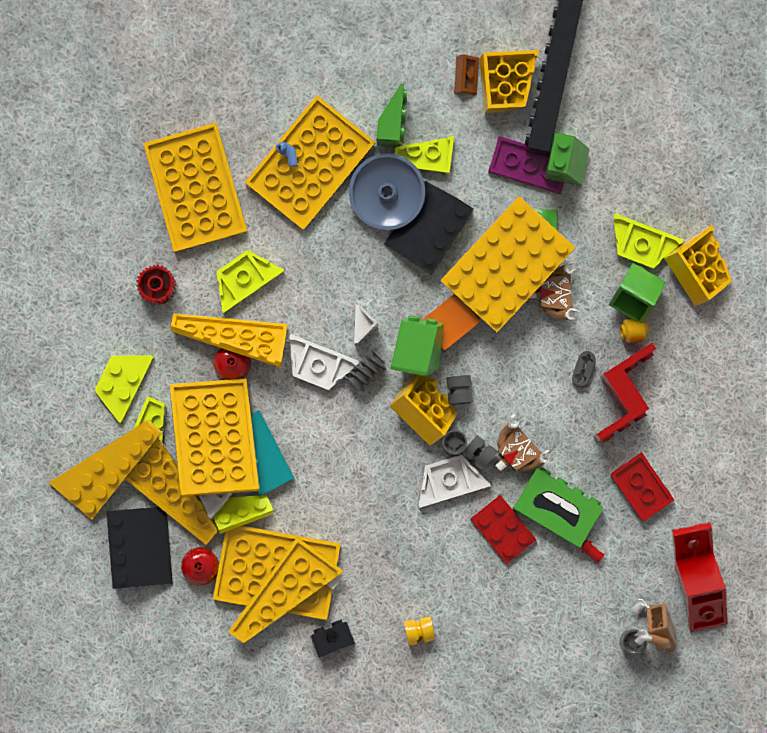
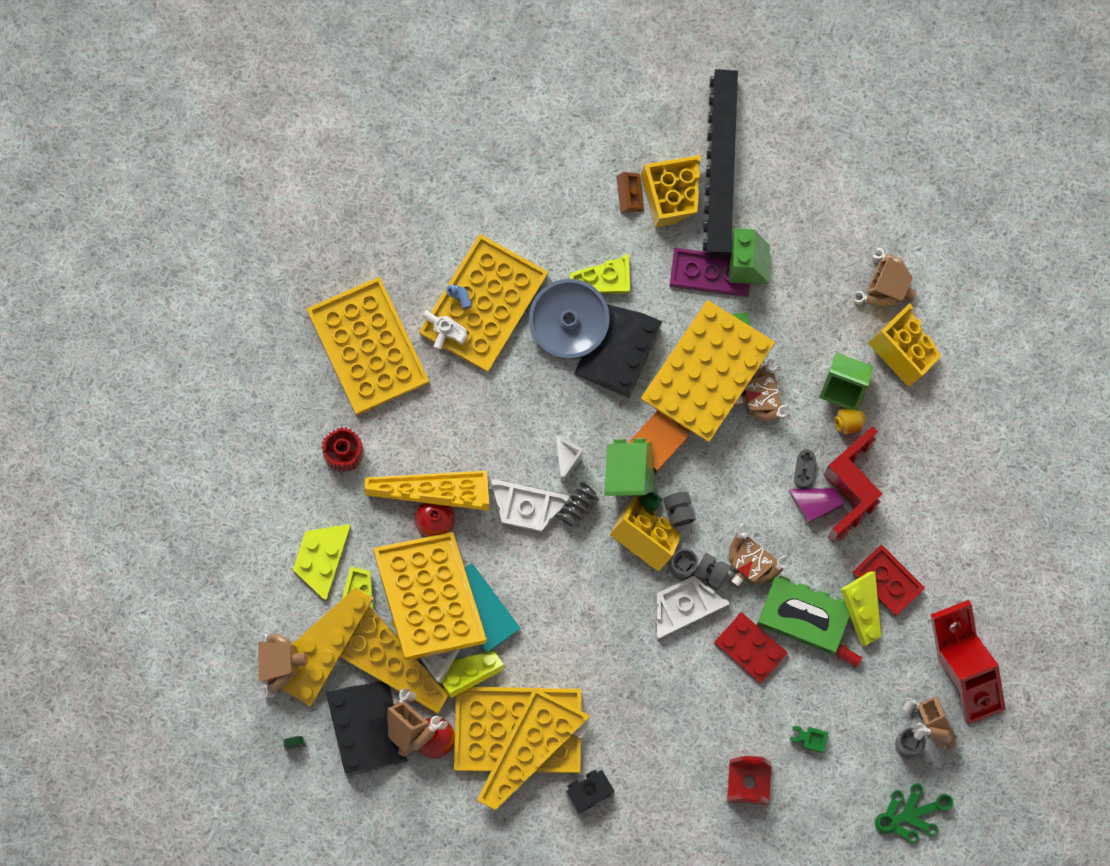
camera: 15 degrees left, 10 degrees down
(67, 476) = (278, 662): none -> medium nougat torso
(72, 550) = (293, 742): none -> dark green tile
(174, 554) = (409, 728): none -> medium nougat torso
(244, 277) = (433, 430): neon yellow wing -> none
(269, 183) = (446, 328): none -> white piece
(389, 123) = (561, 250): bright green slope -> none
(419, 631) = (681, 768): yellow wheel -> none
(434, 379) = (650, 501): none -> dark green tile
(485, 665) = (755, 767): none -> red hose
(544, 623) = (813, 739): none -> green plate
(588, 402) = (816, 501): none -> magenta slope
(613, 509) = (863, 607): none -> neon yellow wing
(621, 705) = (910, 815): none -> green plant
(641, 242) = (841, 331): neon yellow wing -> none
(696, 202) = (889, 282): none -> medium nougat torso

